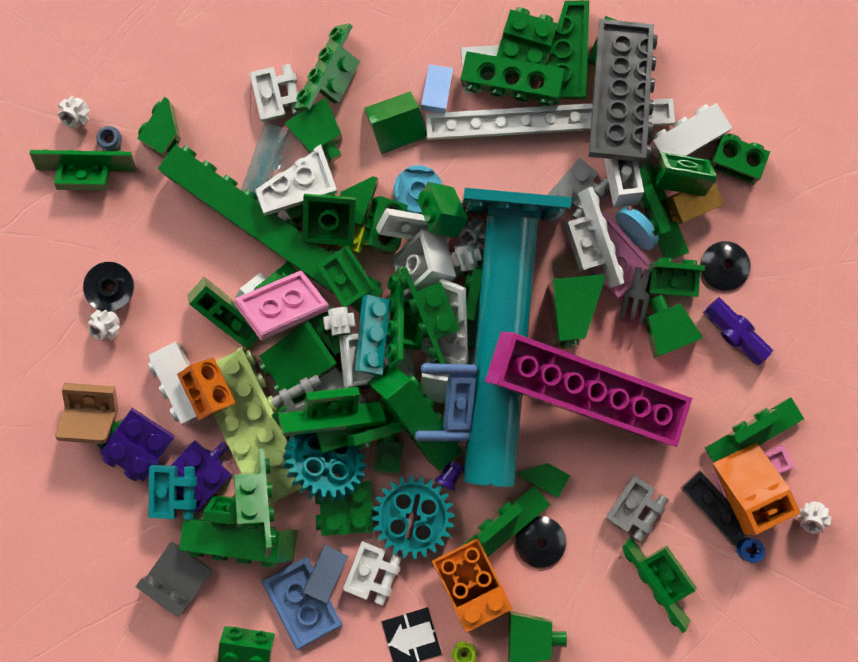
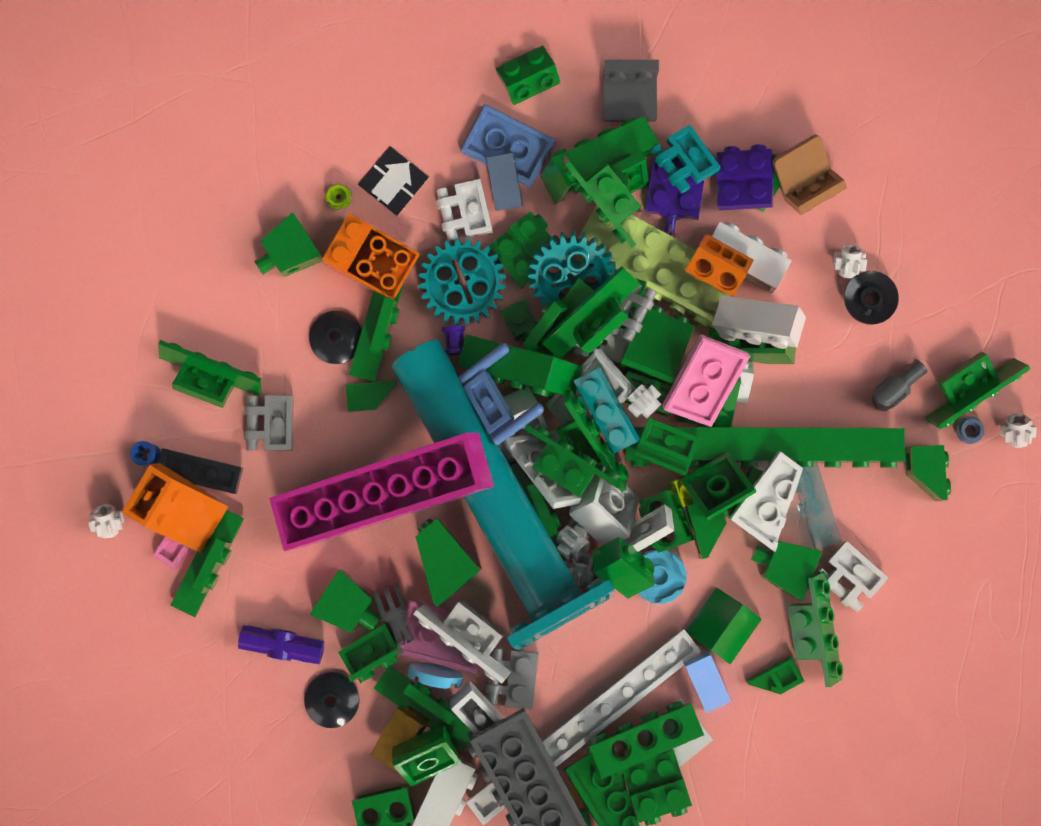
camera: 155 degrees right, 0 degrees up
(139, 206) = (897, 386): none -> dark grey arm
(208, 323) = (759, 321): none -> white brick
(382, 58) = (778, 677): none -> green tile

